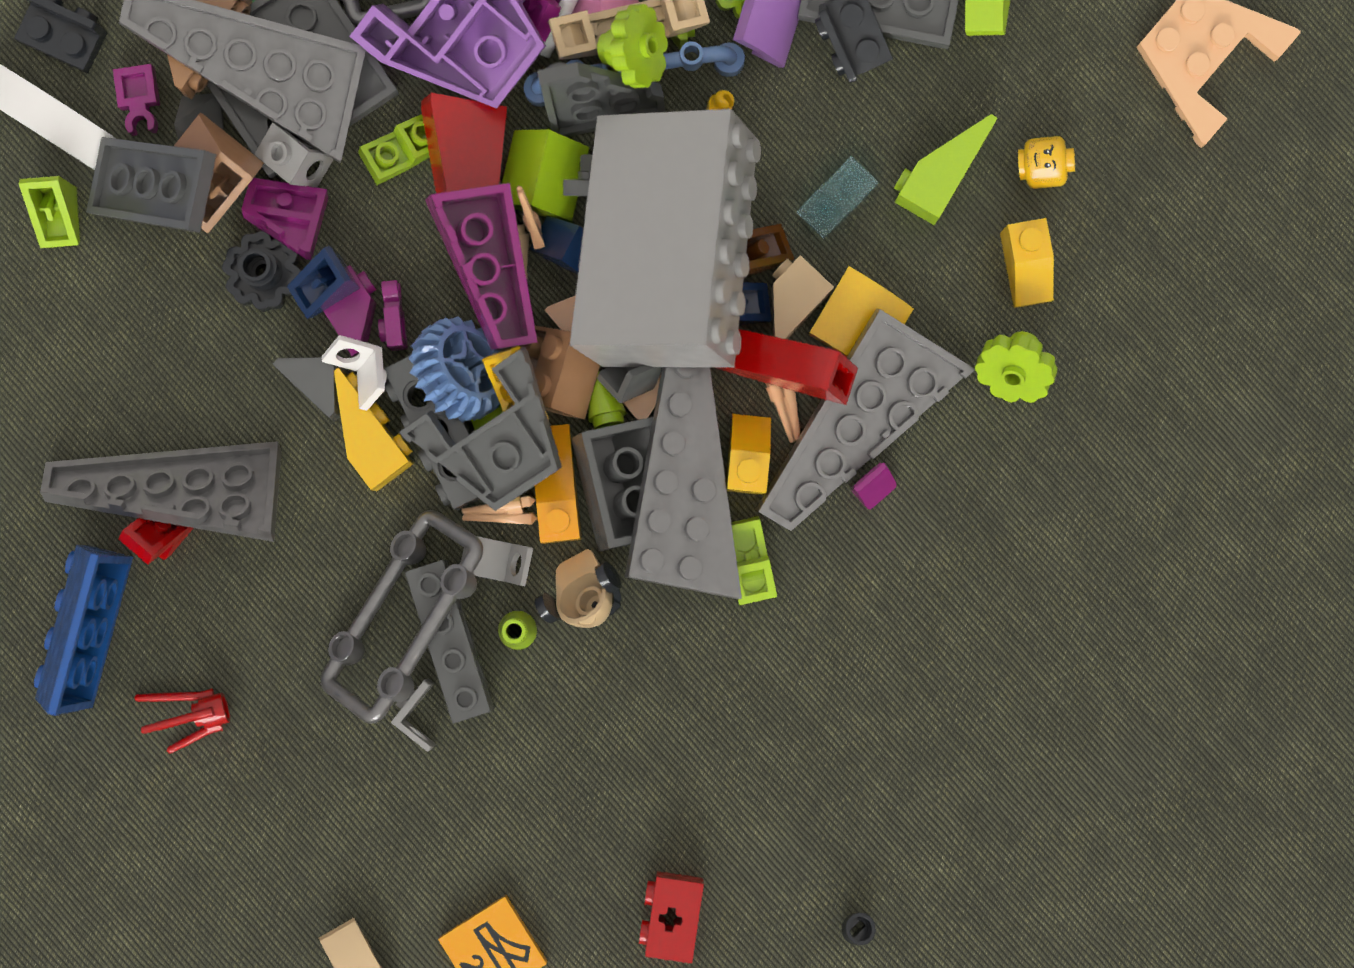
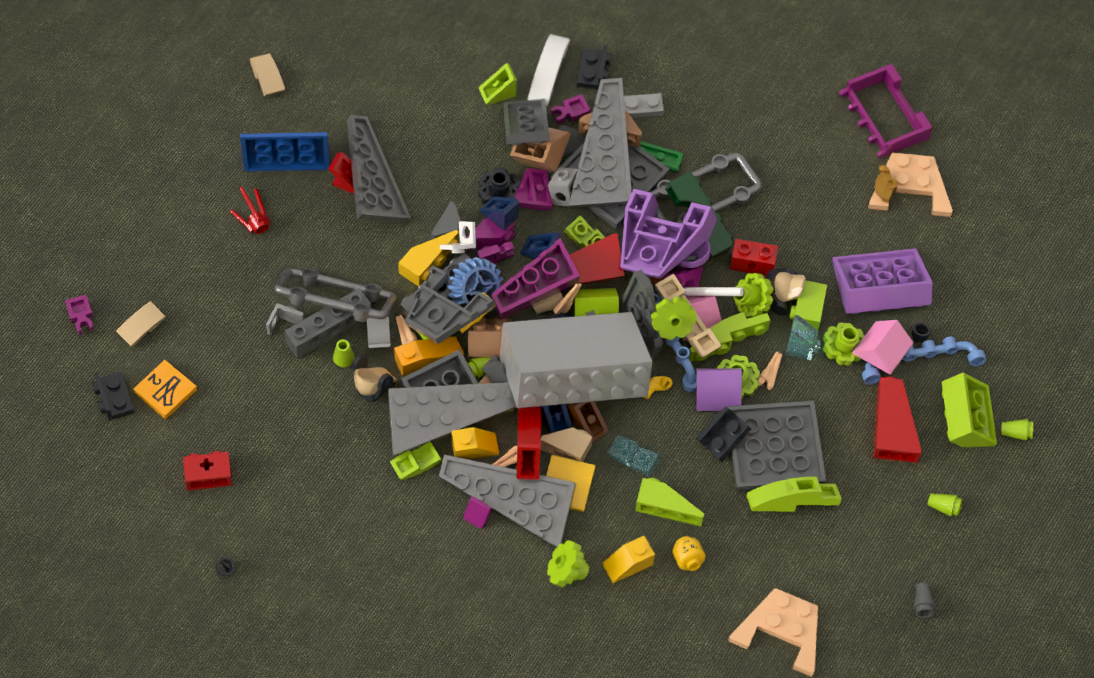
camera: 70 degrees right, 25 degrees down
(402, 233) = (538, 243): none -> dark blue slope

